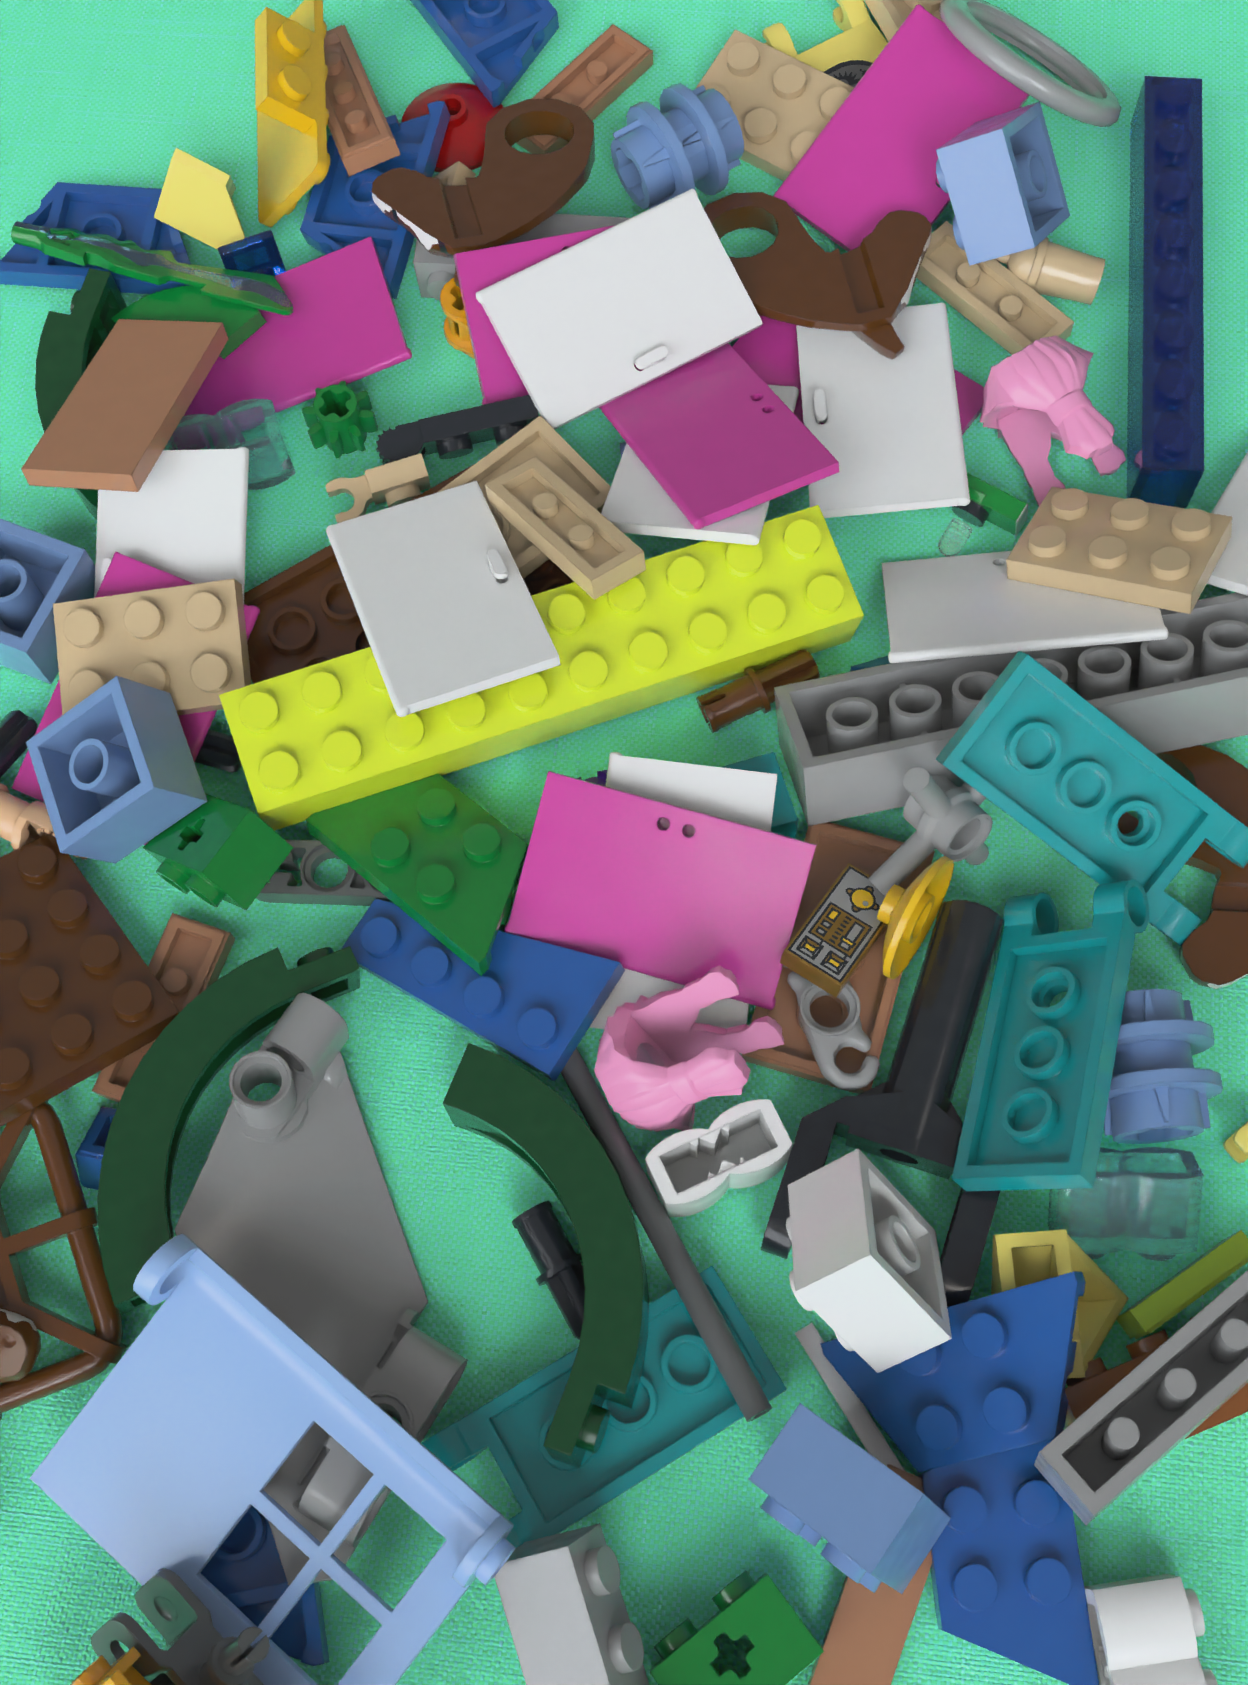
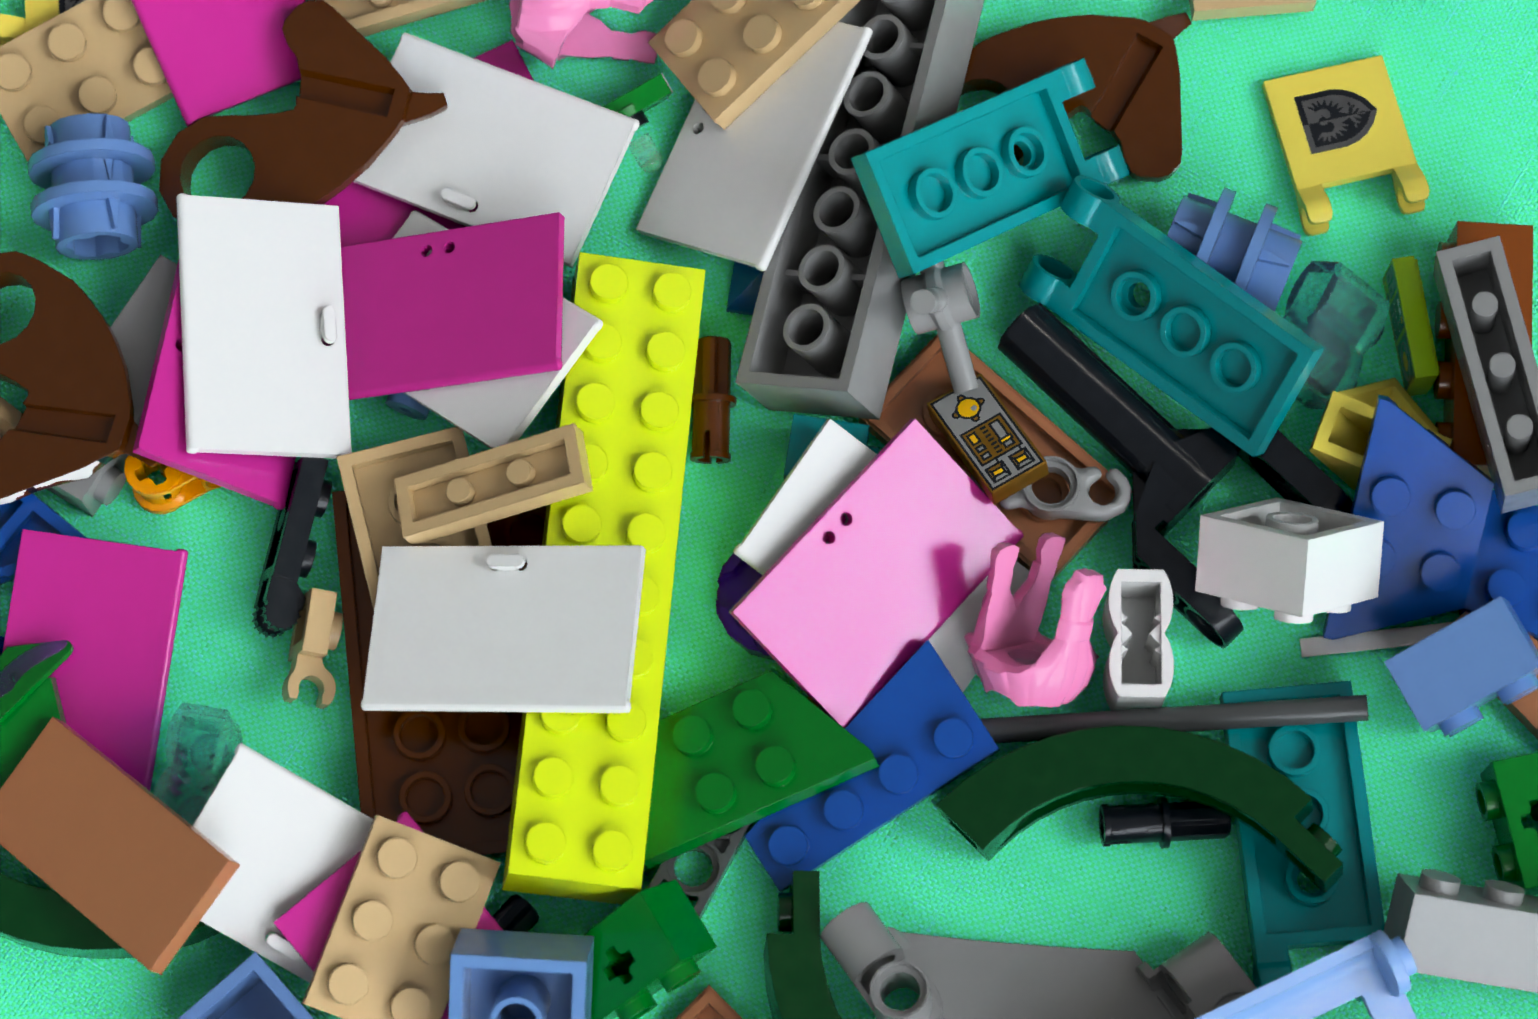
camera: 70 degrees left, 5 degrees up
(340, 419) = (194, 649): green gear -> none
(911, 914) = (1007, 374): yellow dish -> none

